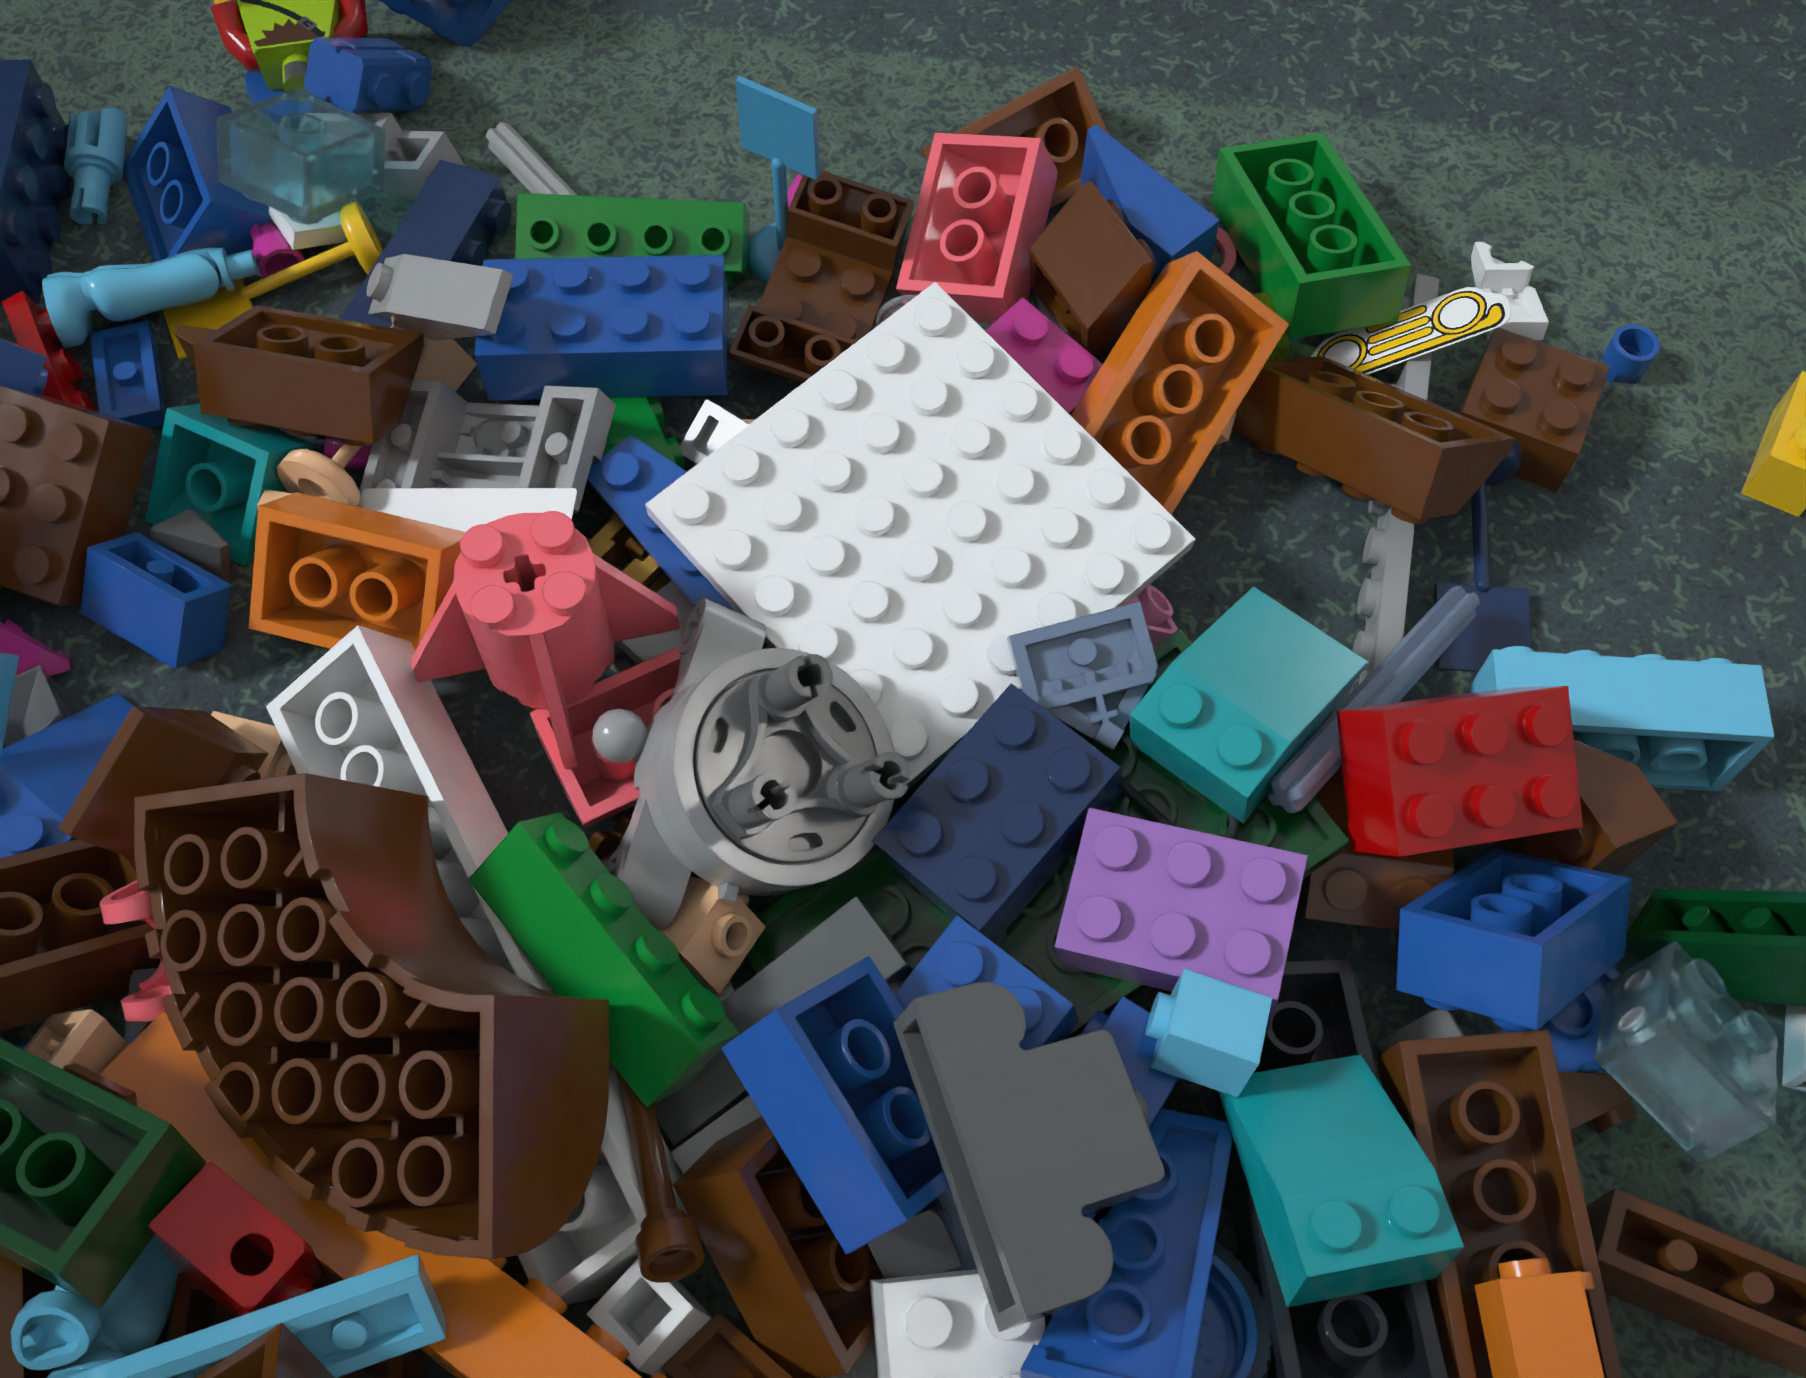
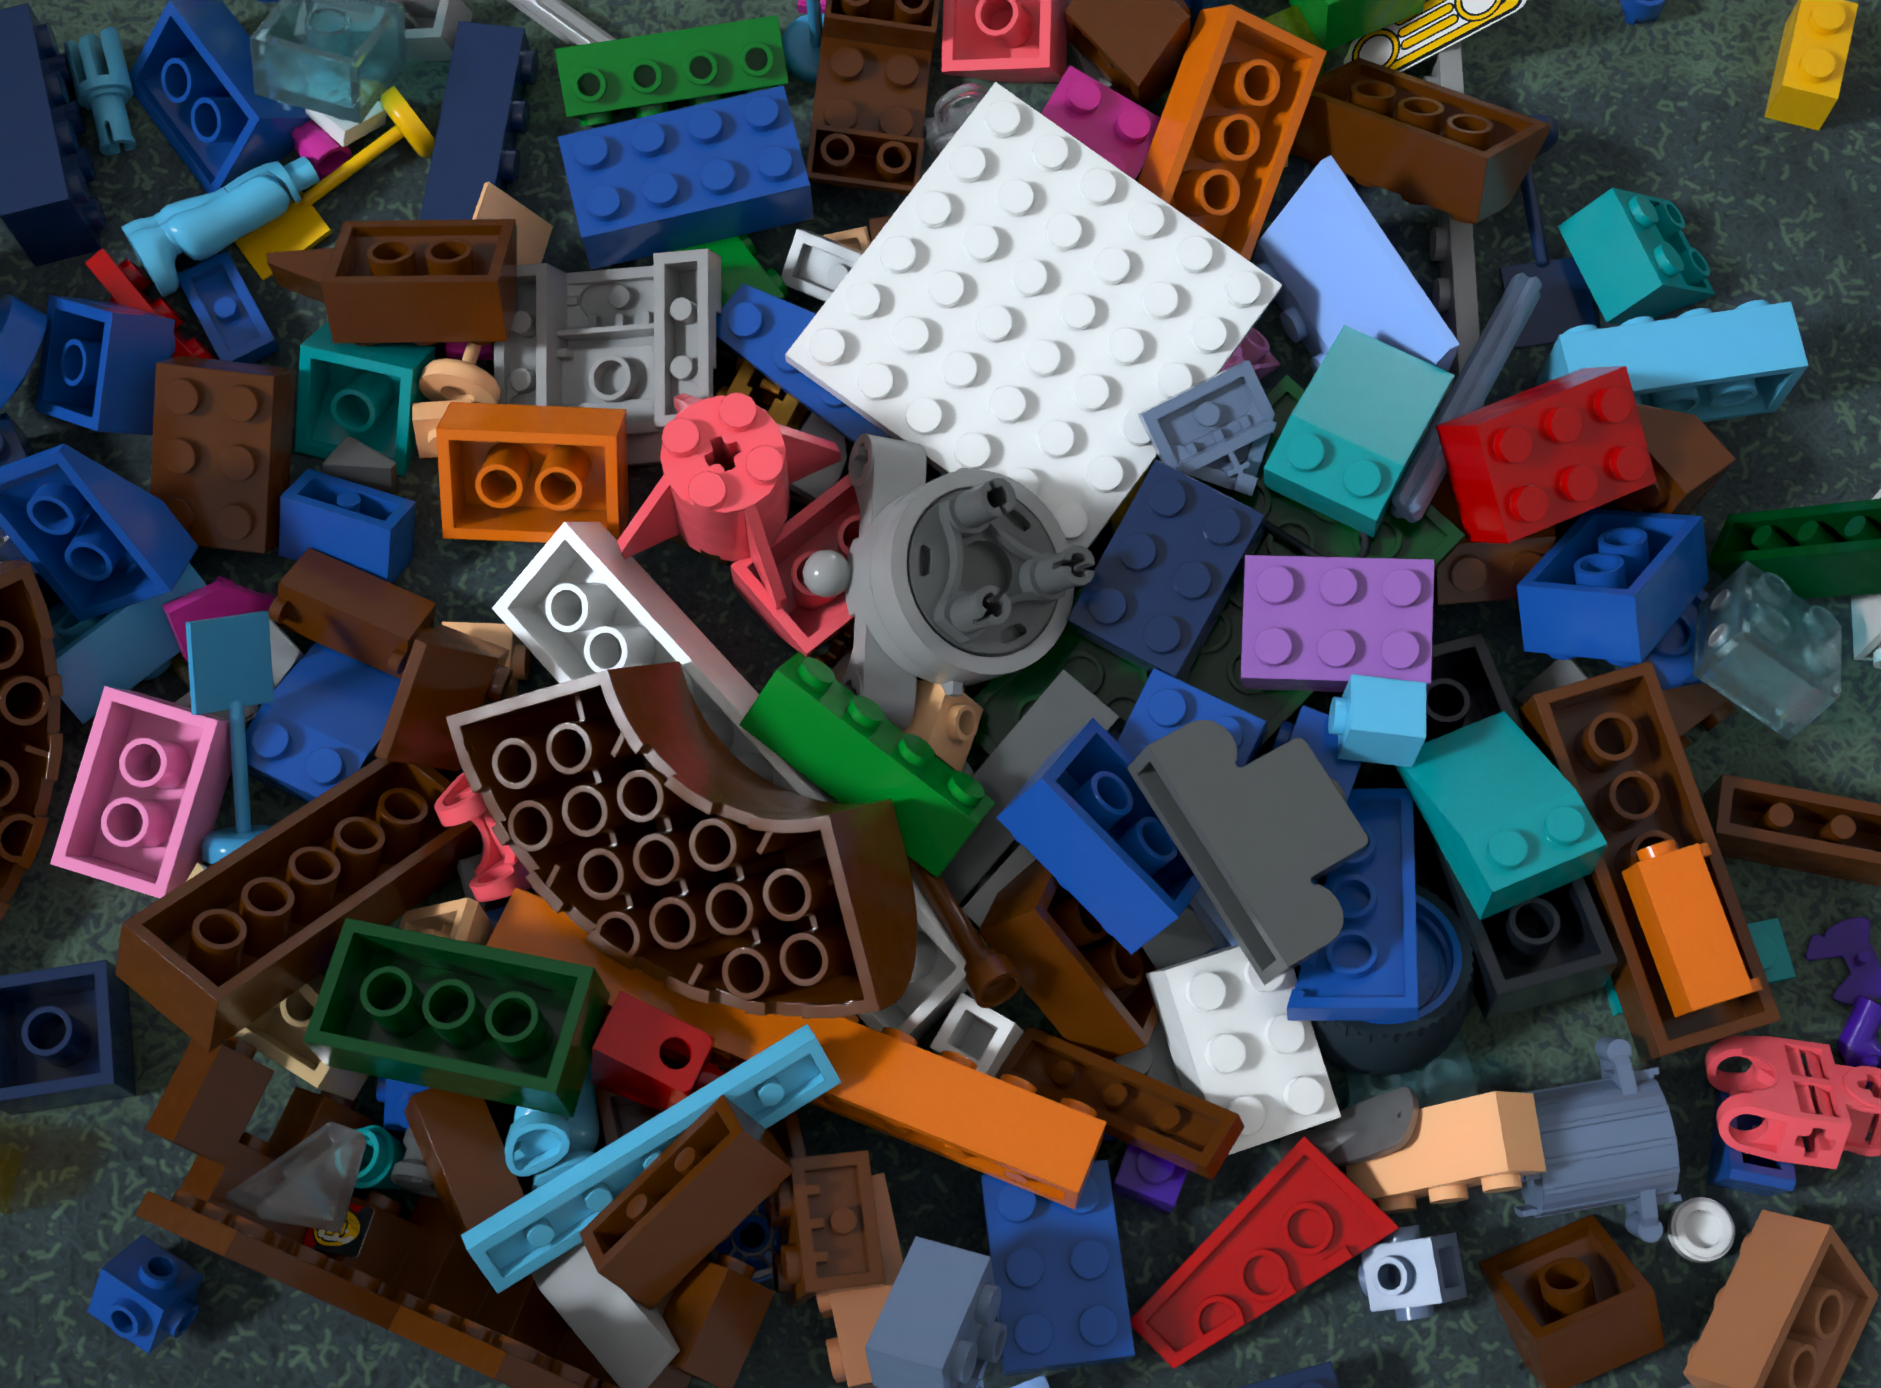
camera: 10 degrees left, 10 degrees up
(114, 667) = (351, 611): none -> reddish brown brick
(438, 296) = (531, 184): light grey slope -> none
(466, 506) = (618, 384): white sticker -> none
(1266, 531) = (1346, 272): none -> light blue slope
(1539, 399) = (1561, 69): reddish brown piece -> none
(1585, 593) = (1635, 256): none -> teal slope

